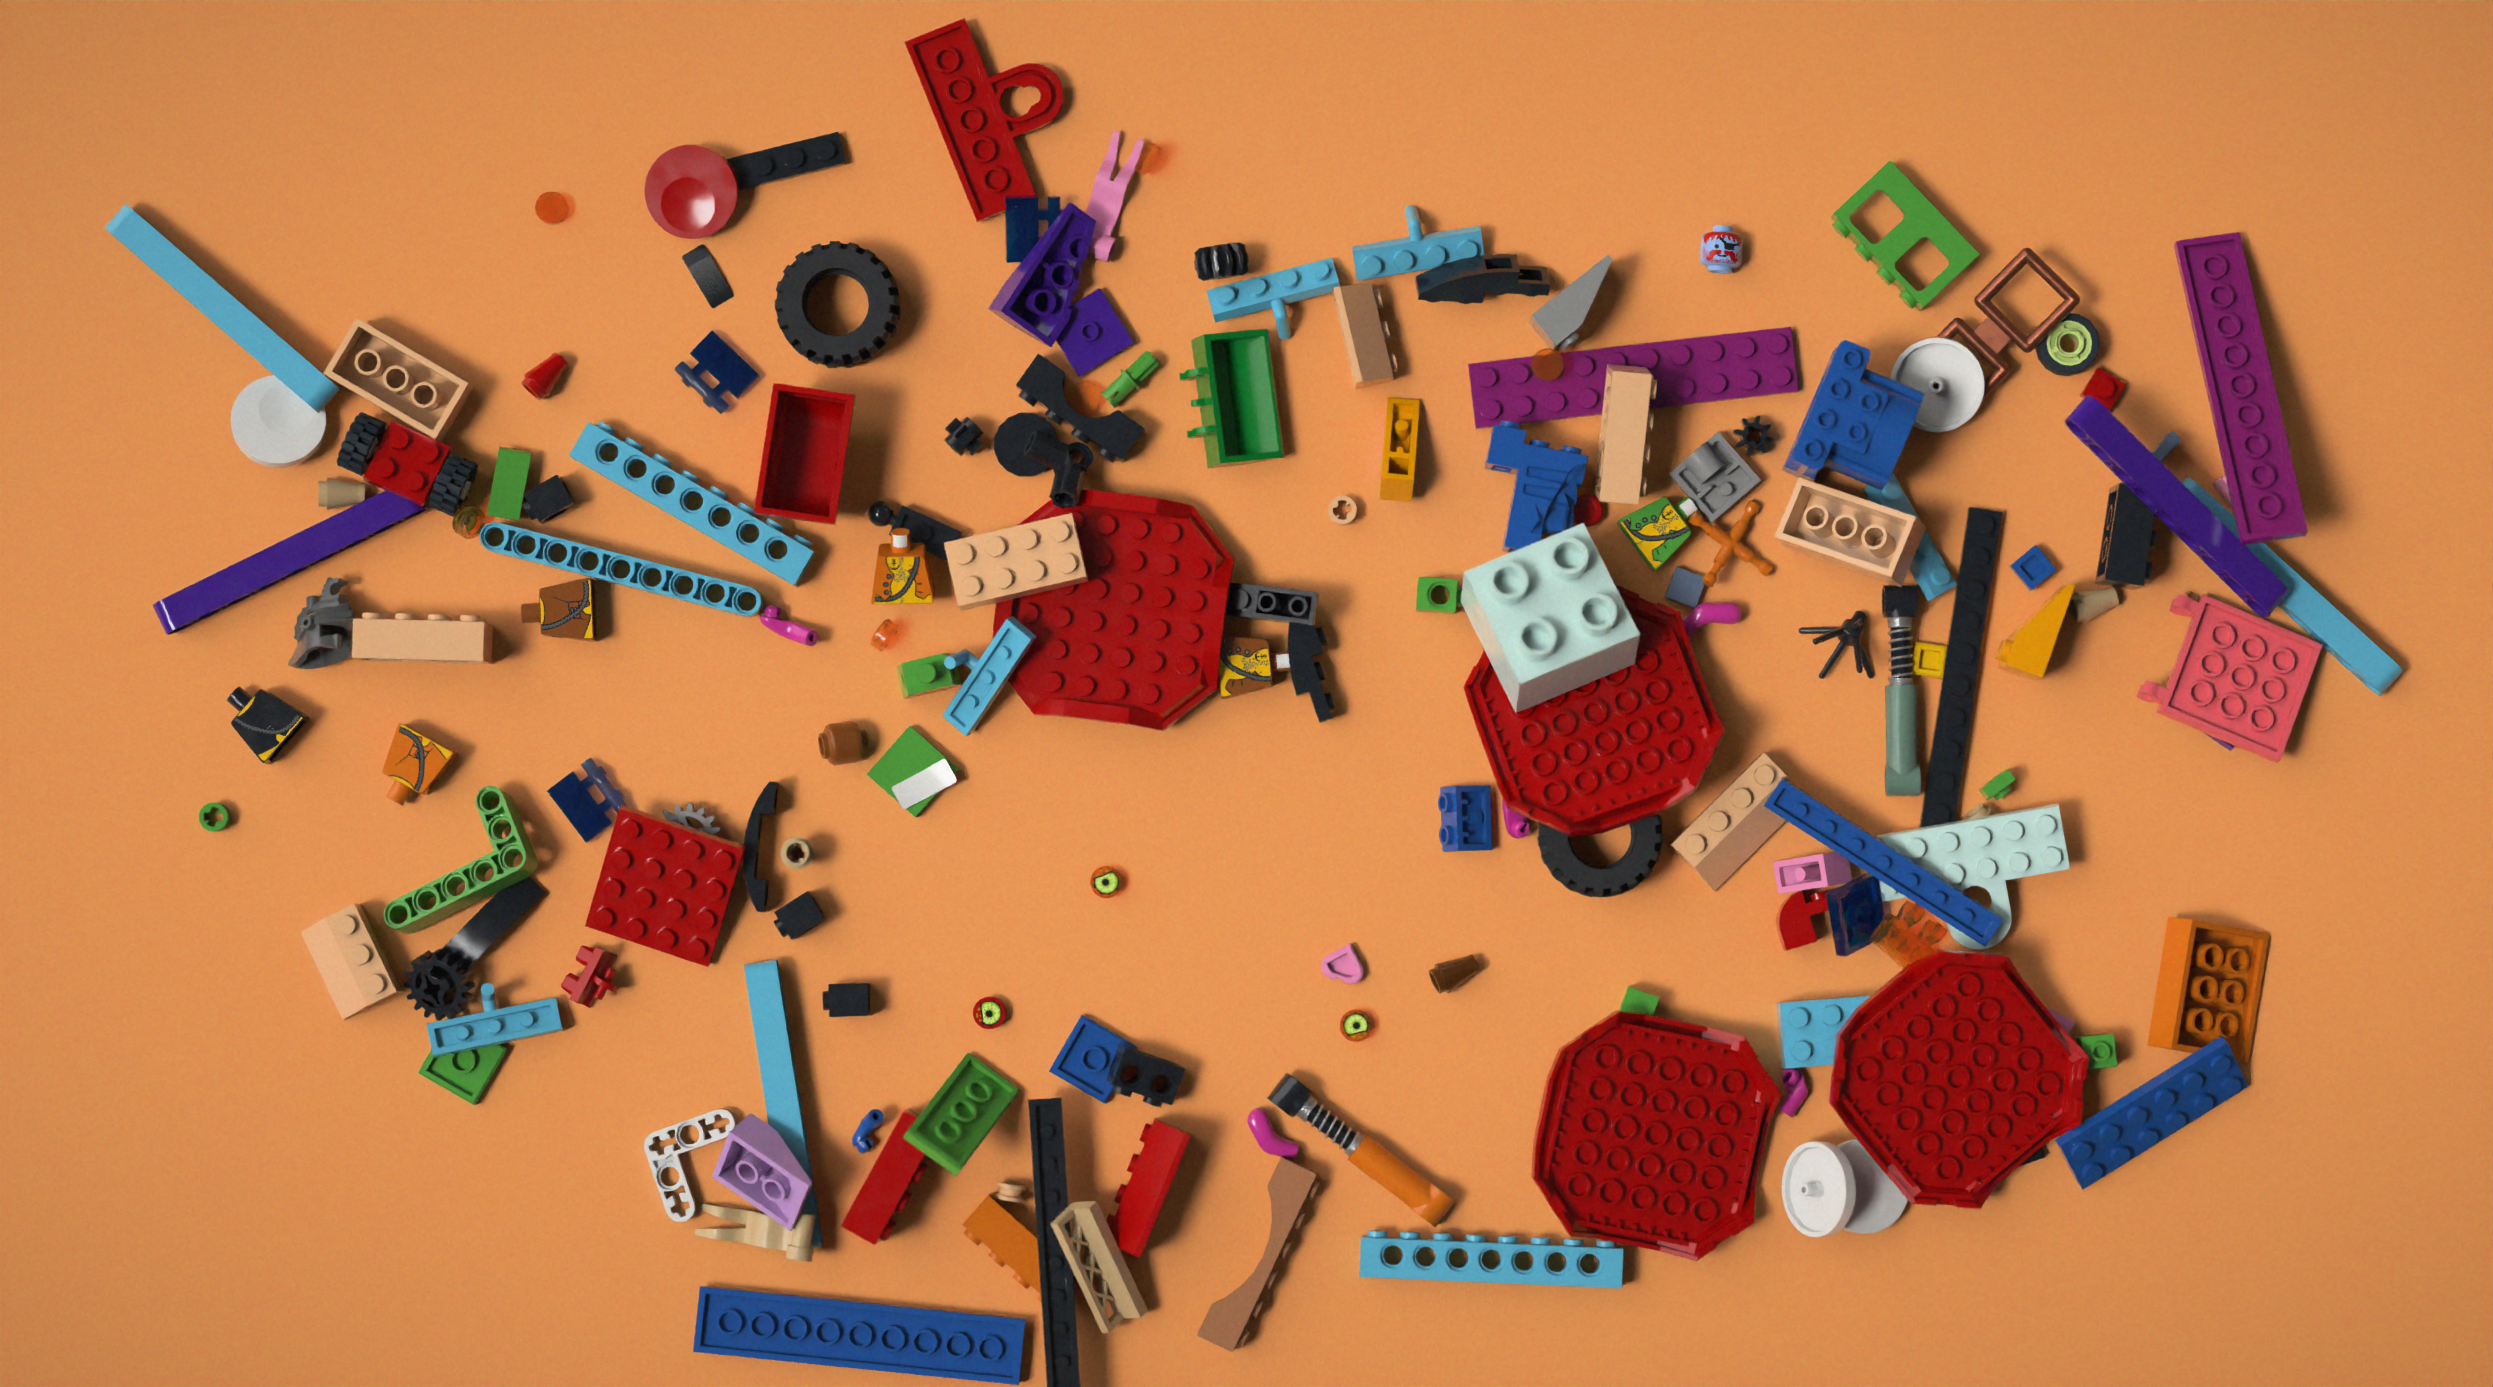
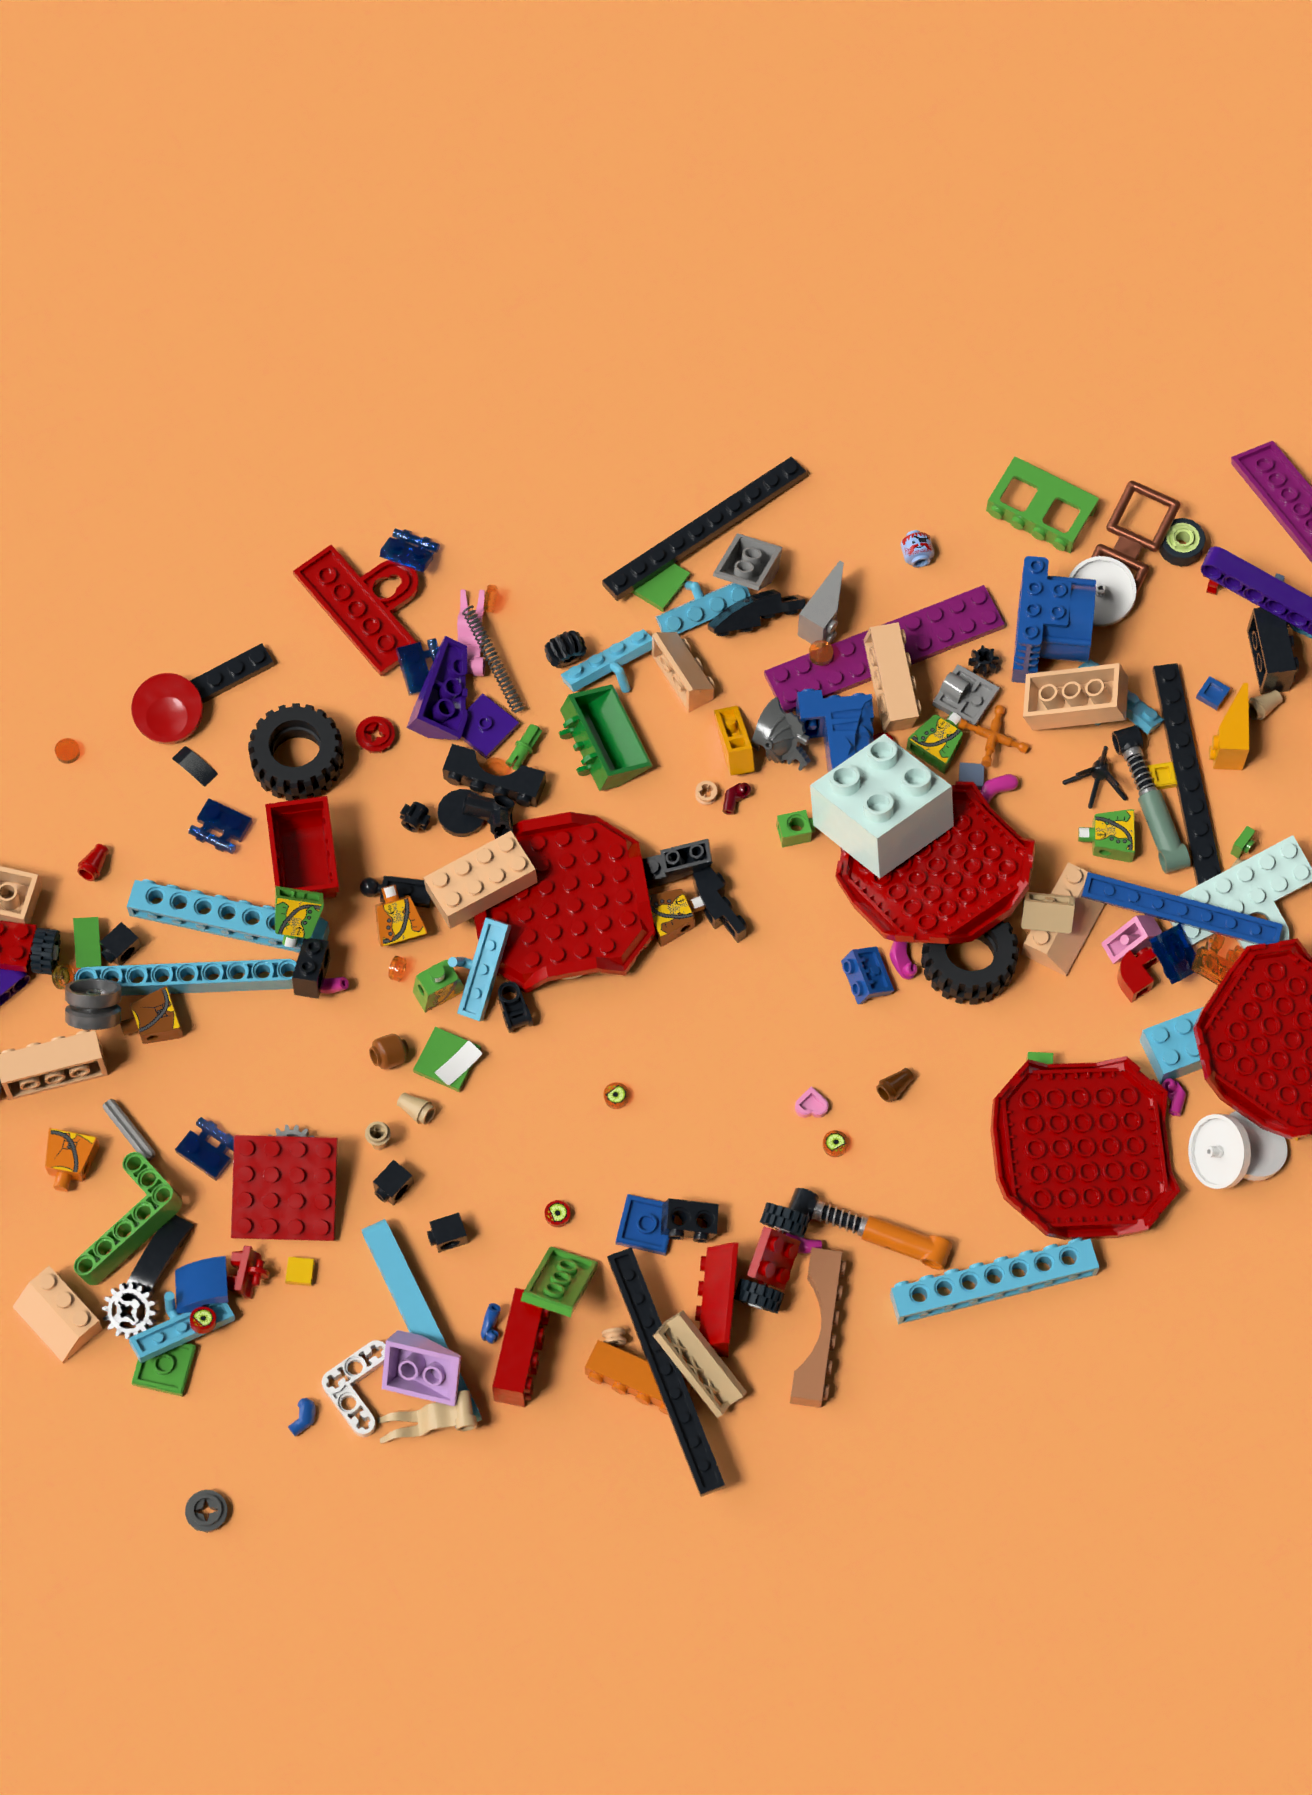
camera: 20 degrees left, 20 degrees down
(453, 1267) = (197, 1502): none -> dark grey gear
(491, 582) = (93, 1004): none -> flat silver wheel
(497, 747) = (128, 1129): none -> light grey axle
(521, 1027) = (202, 1320): none -> tile
(532, 978) = (201, 1284): none -> blue slope
(614, 1178) = (306, 1416): none -> blue arm
(657, 992) = (299, 1271): none -> yellow tile
(765, 804) = (342, 1115): black slope -> none
(773, 542) = (296, 913): none -> torso
(775, 610) = (311, 968): none -> black brick
(857, 827) = (417, 1108): none -> tan cone
(859, 1335) = (530, 1478): blue plate -> none
(943, 288) = (369, 726): none -> red gear
(1013, 734) = (514, 1011): none -> black piece
(1059, 63) = (403, 553): none -> clear blue plate
(1125, 238) = (492, 659): none -> dark grey piece
(1228, 1160) = (773, 1258): none -> plate
(1370, 191) = (663, 587): none -> bright green tile
(1376, 524) = (734, 795): none -> dark red arm
(1455, 138) = (703, 528): none -> black plate
(1458, 469) = (781, 735): none -> dark grey helmet
(1491, 218) = (749, 562): none -> light grey slope
(1714, 818) = (1048, 912): none -> tan panel
(1834, 725) = (1111, 835): none -> torso

